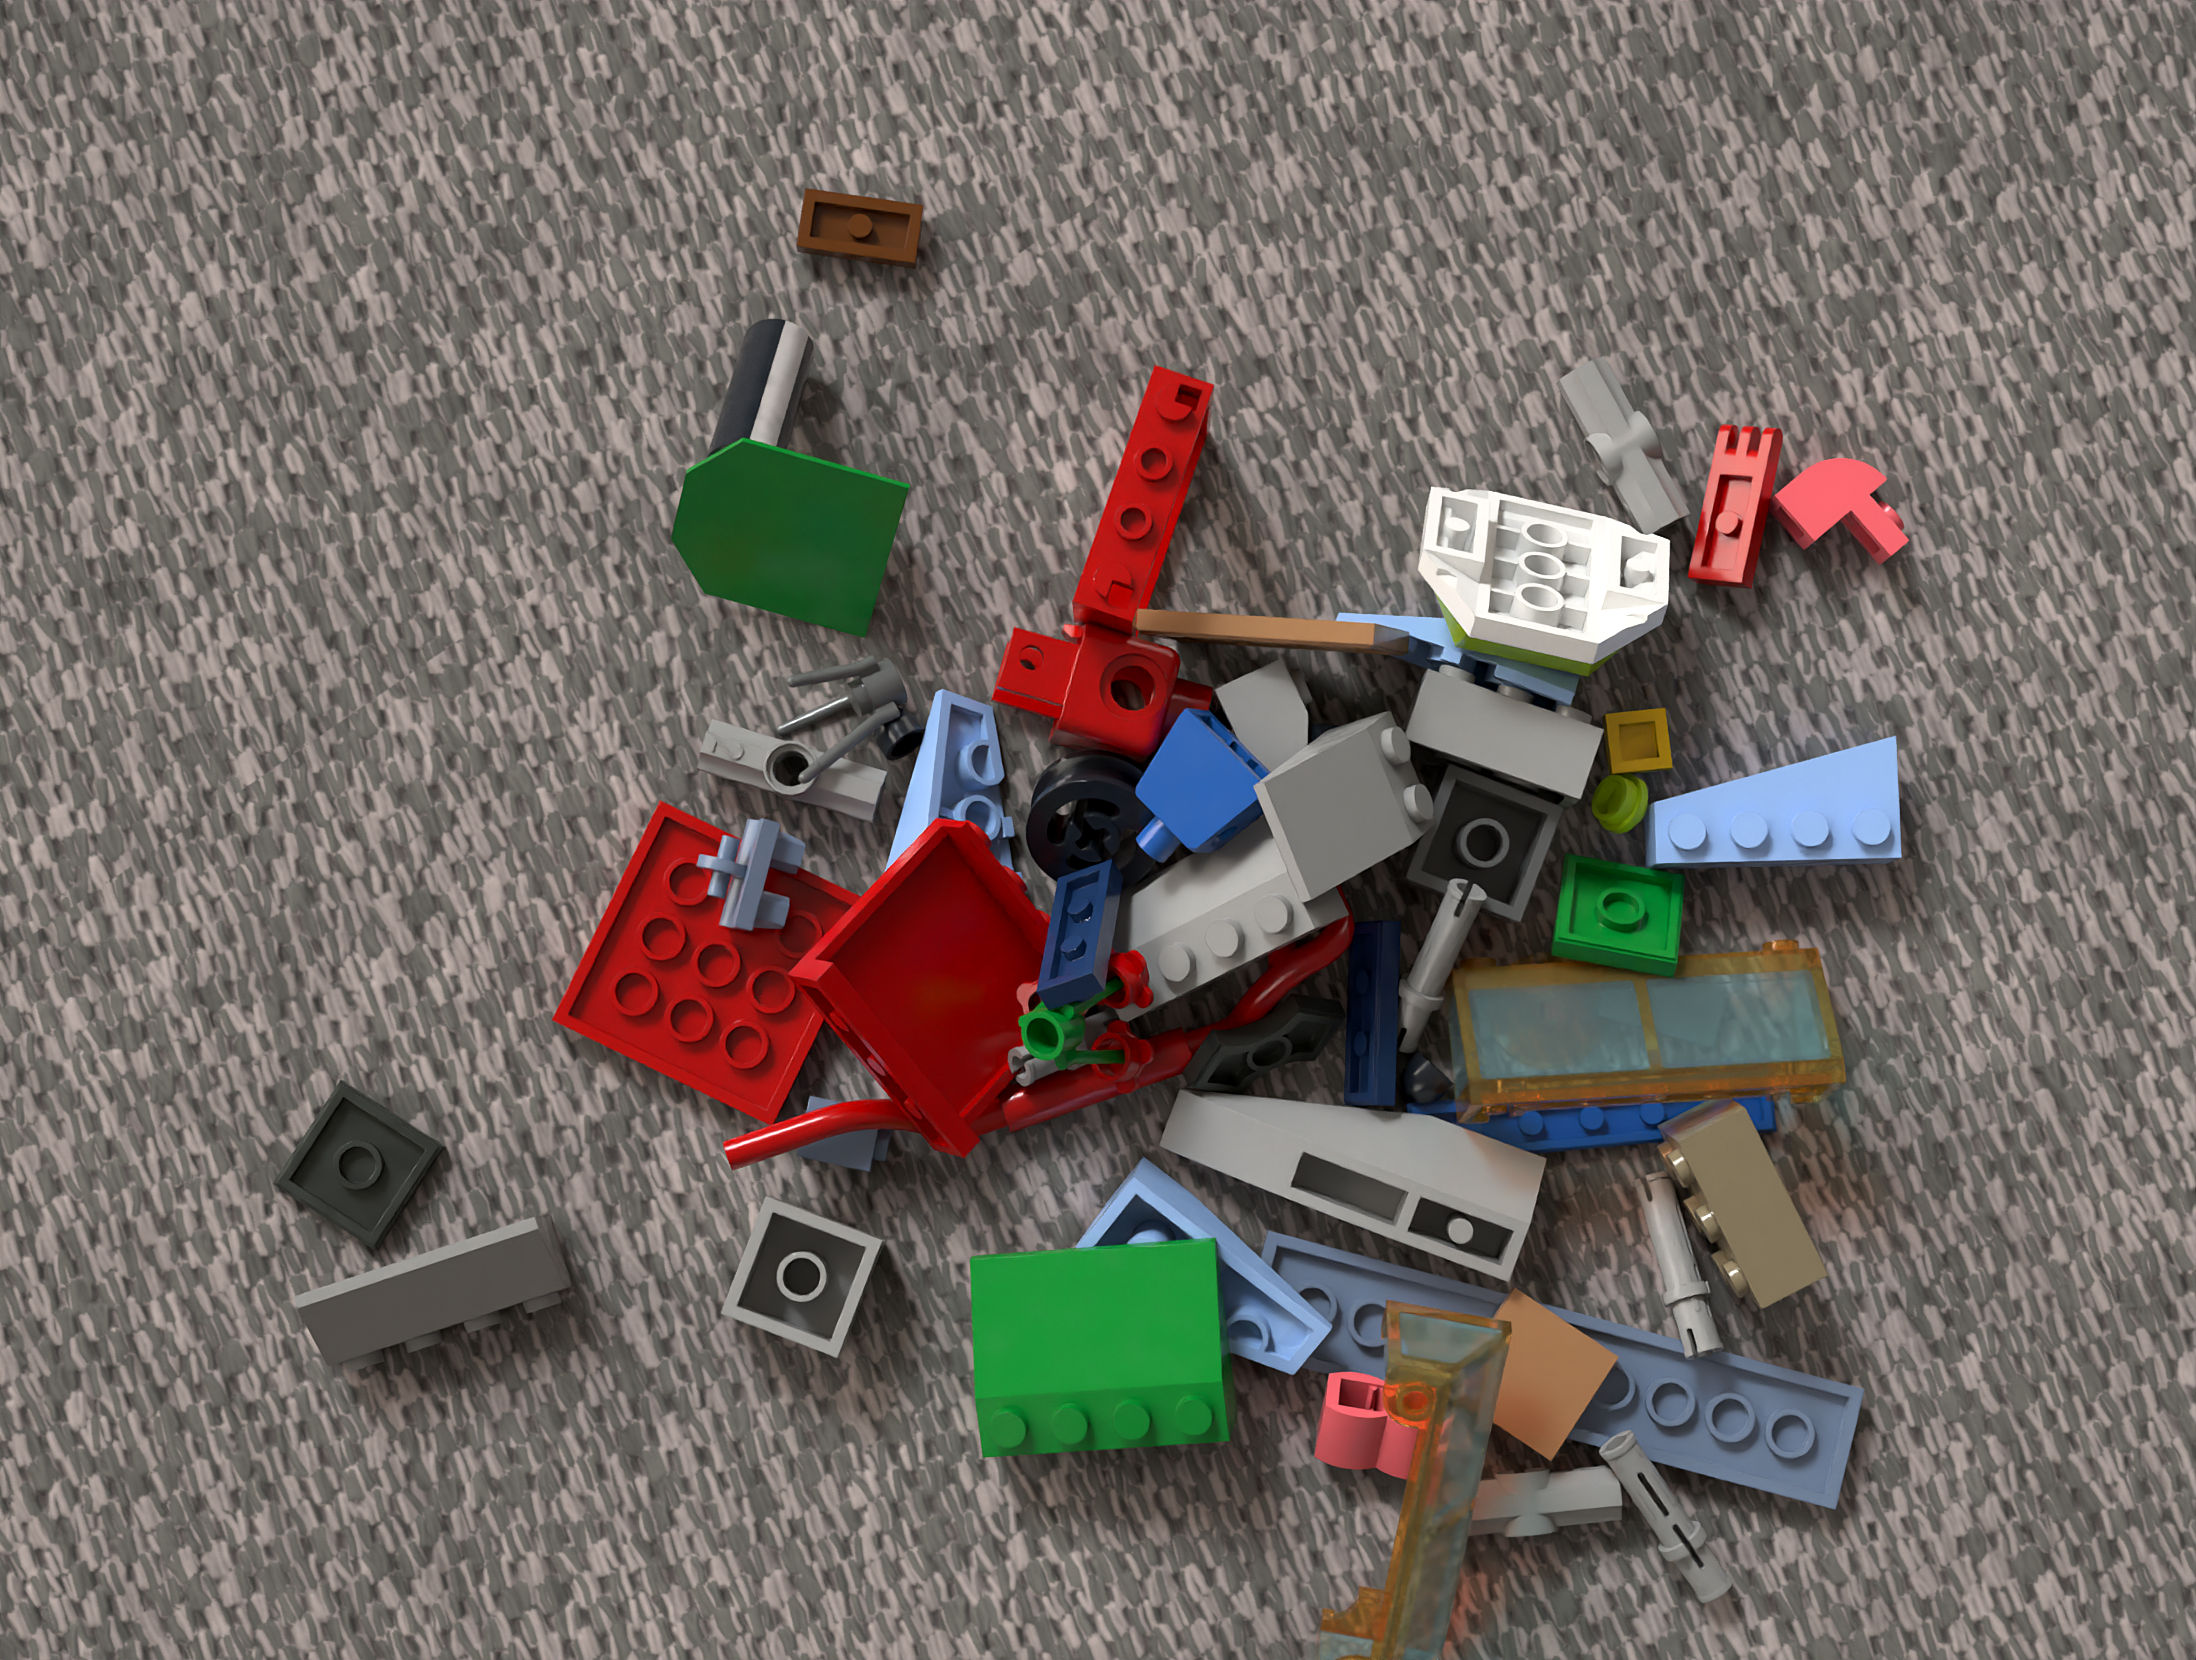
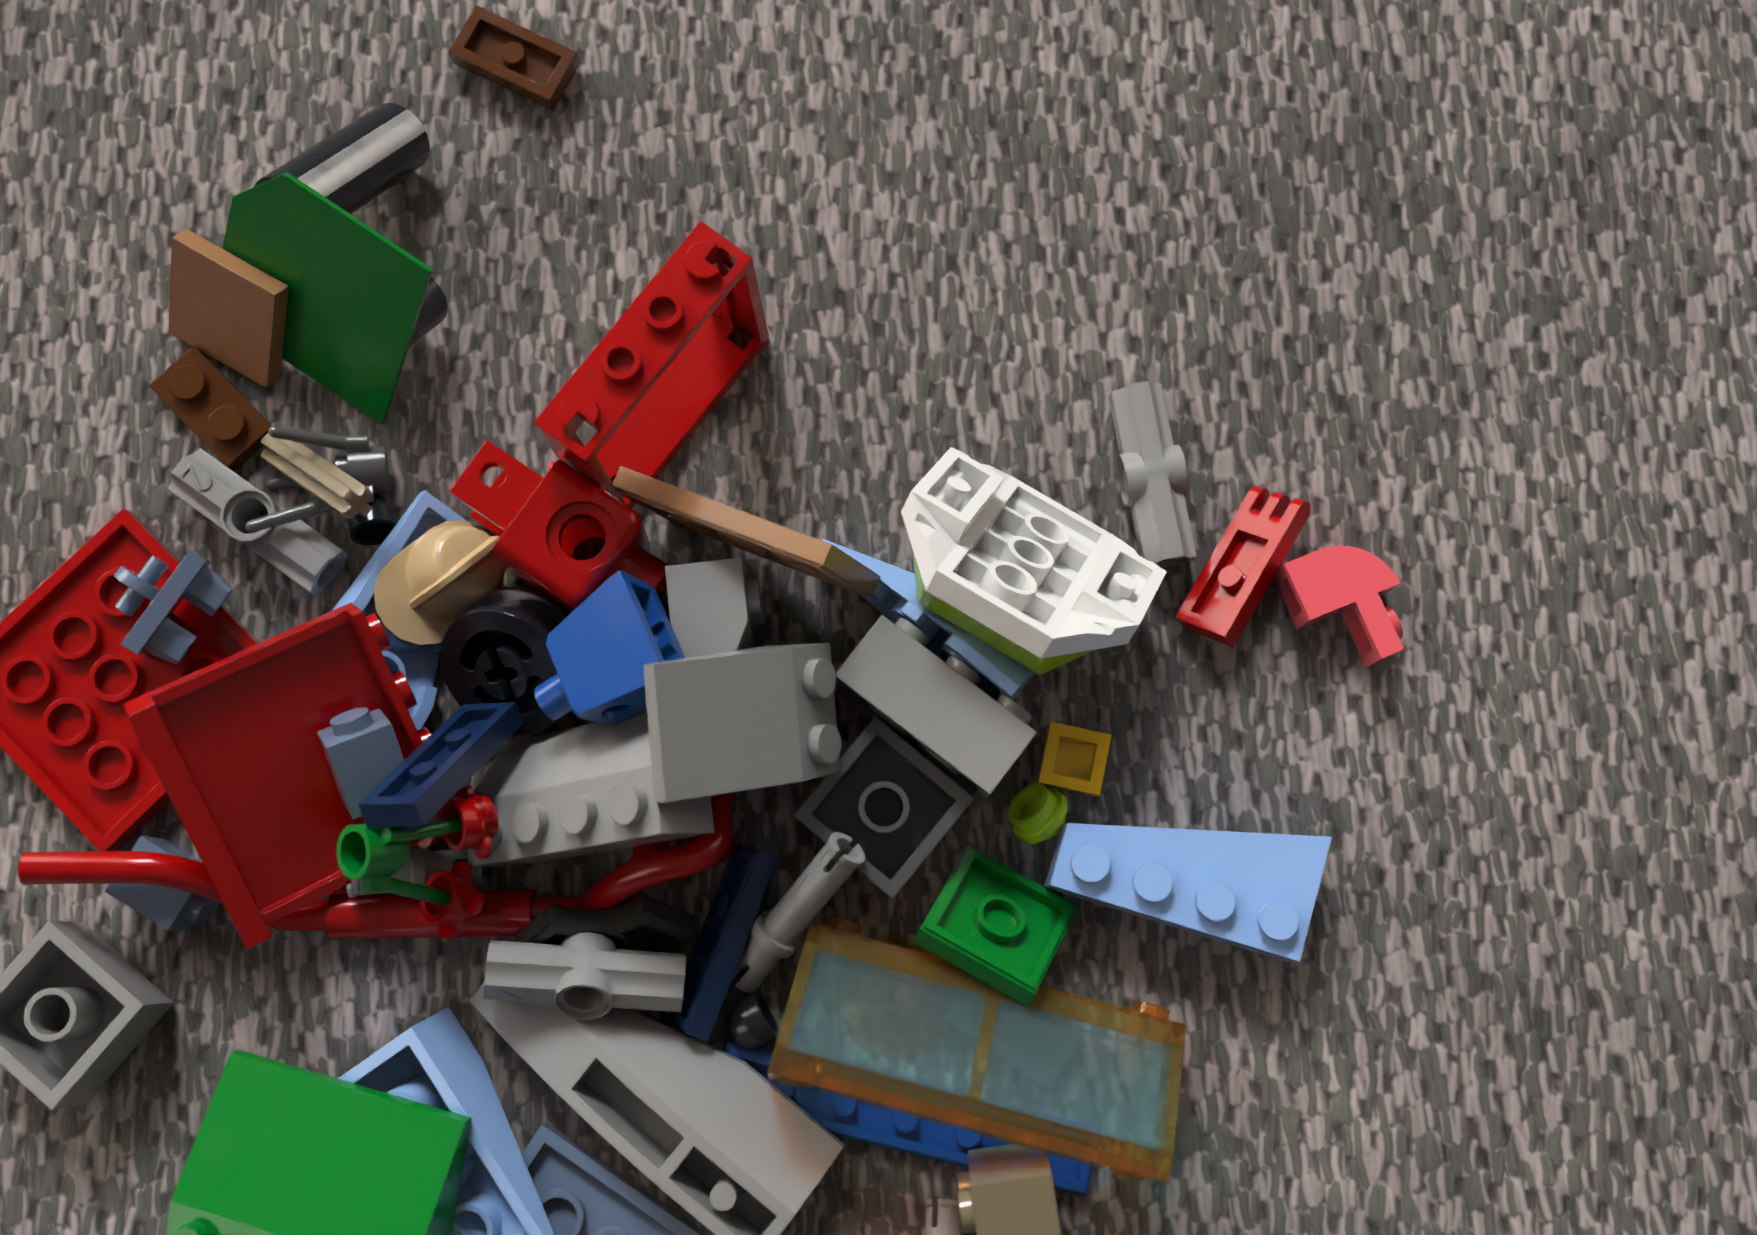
camera: 25 degrees right, 5 degrees down
(688, 576) = (227, 308): none -> medium nougat tile
(699, 675) = (212, 408): none -> reddish brown plate
(840, 709) = (317, 476): none -> dark tan axle
(993, 768) = (437, 581): none -> tan piece
(1002, 956) = (360, 753): none -> sand blue brick
(1265, 1084) = (584, 976): none -> light grey piece

